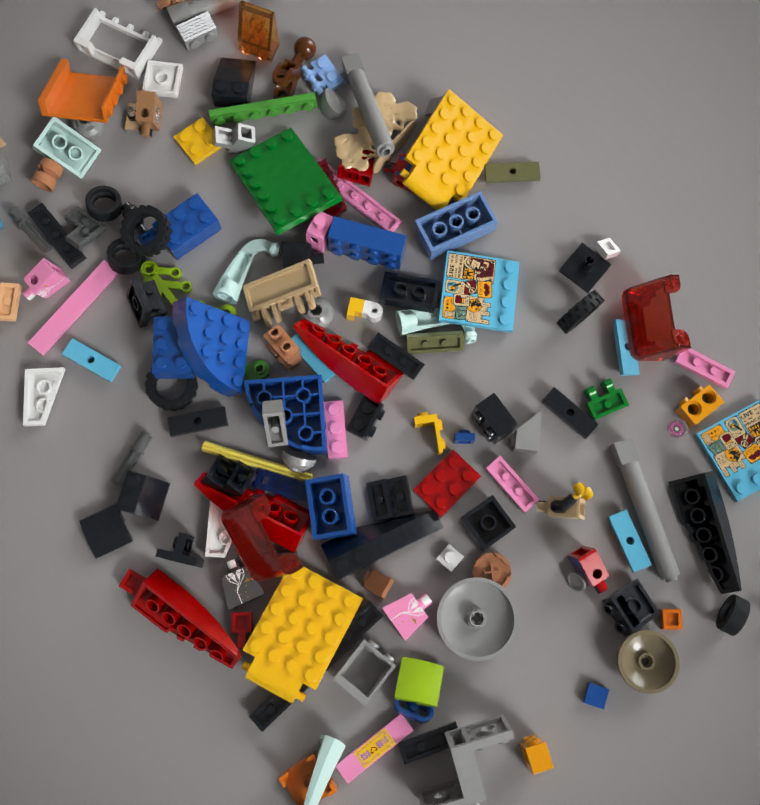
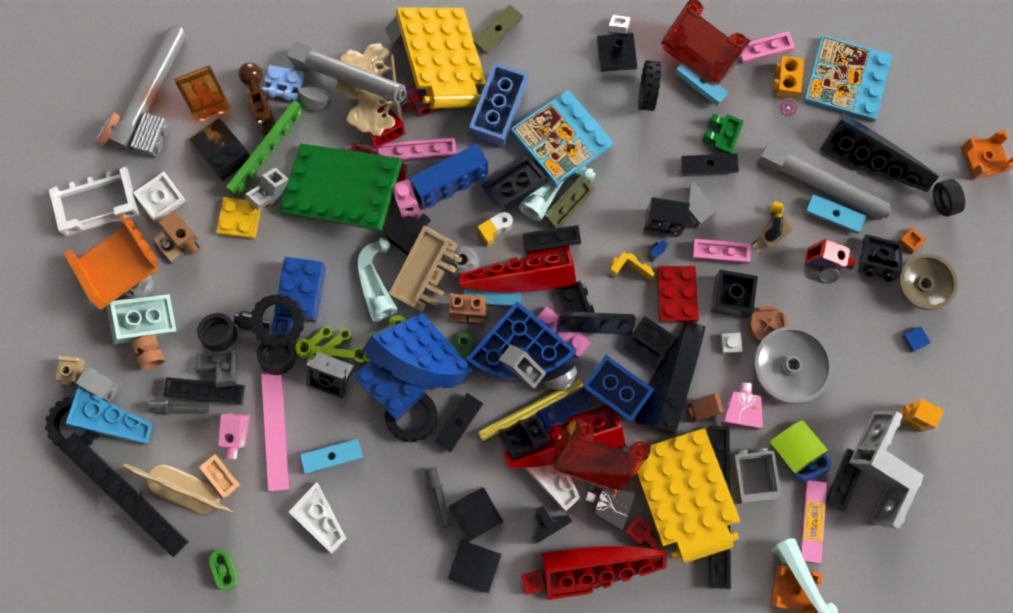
camera: 45 degrees left, 0 degrees up
(363, 445) = (595, 322): none -> black plate

